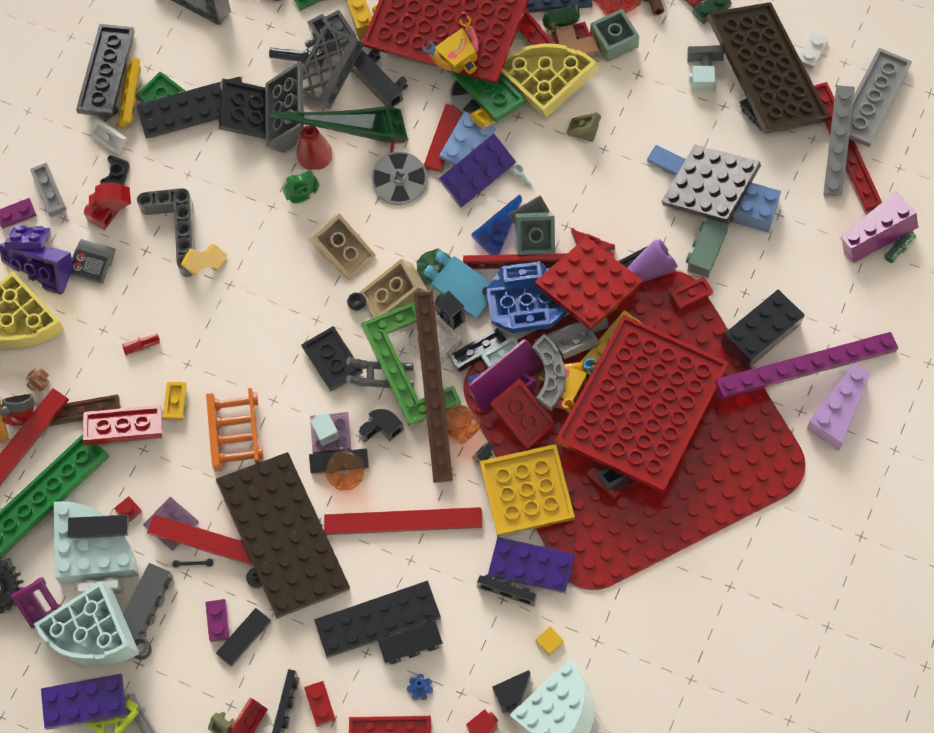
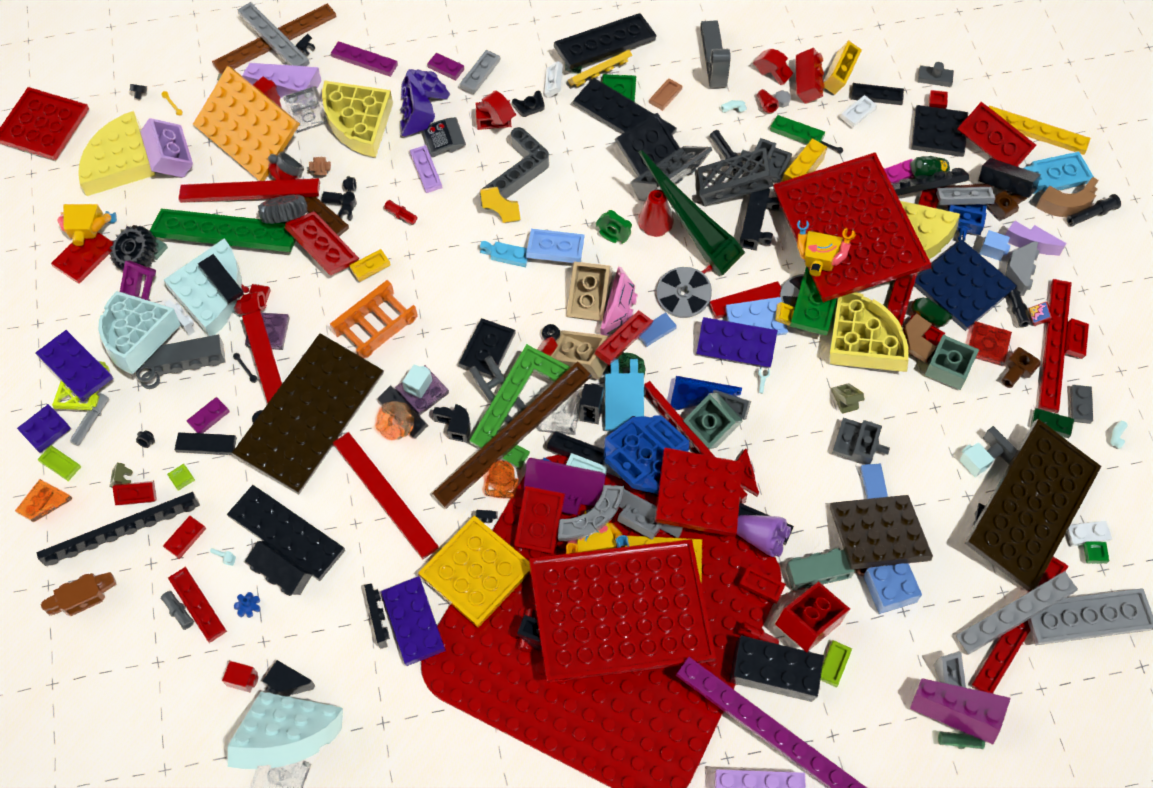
camera: 50 degrees right, 5 degrees down
(62, 435) = (282, 209): none -> dark grey gear
(76, 367) = (350, 184): none -> black plate
(91, 379) = (347, 200): none -> black bar
(111, 296) = (426, 169): none -> lavender tile
(138, 520) = (250, 303): none -> red rock
(197, 62) = (665, 94): none -> nougat tile
(200, 684) = (145, 438): none -> black plate
(251, 22) = (740, 104): none -> light aqua arm
(251, 286) = (505, 253): none -> medium azure plate
(259, 675) = (181, 477): none -> lime tile
(278, 243) = (555, 245): none -> light blue plate
(366, 677) = (228, 557): none -> light aqua hand
(367, 311) = (548, 346): none -> red slope
(371, 230) = (619, 303): none -> bright pink wedge
(411, 247) = (623, 337): none -> red plate
(416, 222) = (660, 327): none -> medium blue tile
(549, 640) = (355, 682): yellow tile -> none
(627, 145) = (858, 441): none -> dark grey plate
(726, 324) = (756, 633): none -> red axle
(744, 275) = (812, 616): none -> red brick
(781, 281) = (835, 663): none -> lime tile
(830, 56) = (1096, 552): none -> green plate
(847, 215) = (950, 669): none -> light grey slope

